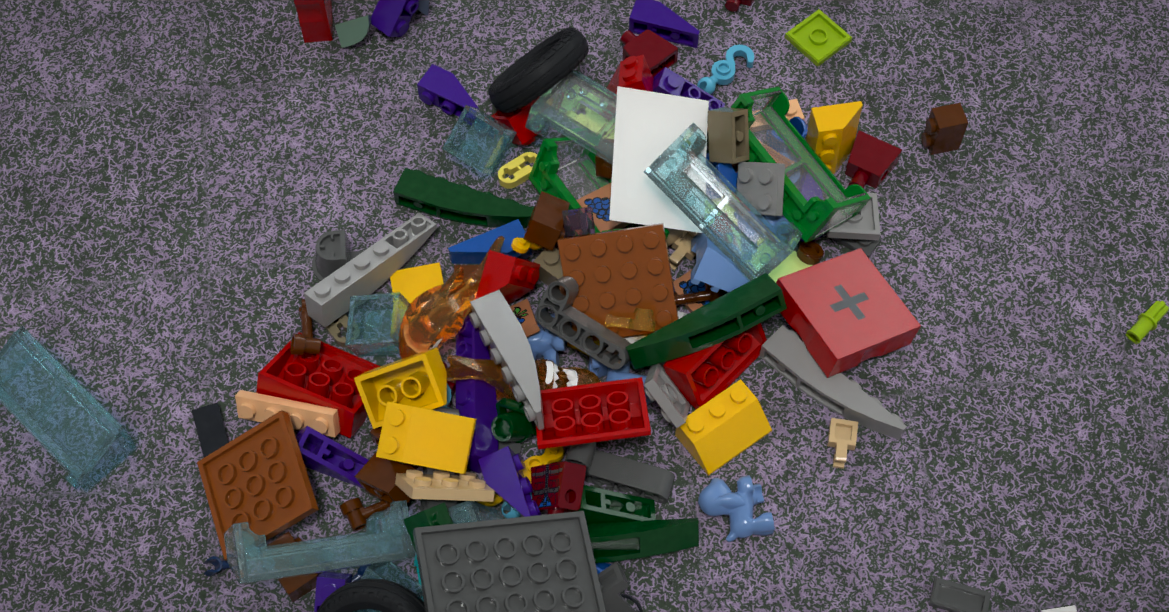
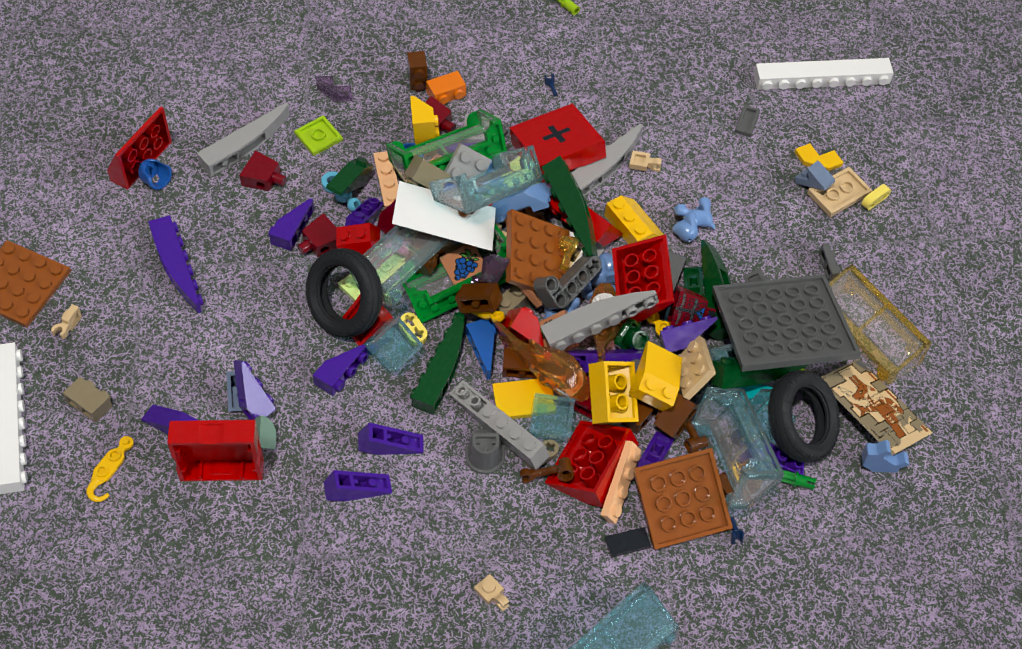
camera: 90 degrees left, 5 degrees down
(150, 280) = (491, 591): none -> tan plate
(289, 130) = (355, 485): none -> dark purple slope
(350, 157) = (388, 441): none -> dark purple slope
(663, 390) = (621, 240): light grey plate -> none
(736, 68) = (351, 176): none -> dark green slope
(898, 38) = (326, 86): none -> clear purple slope
(928, 172) = (446, 87): none -> orange brick
(976, 309) = (550, 82): none -> dark blue hand

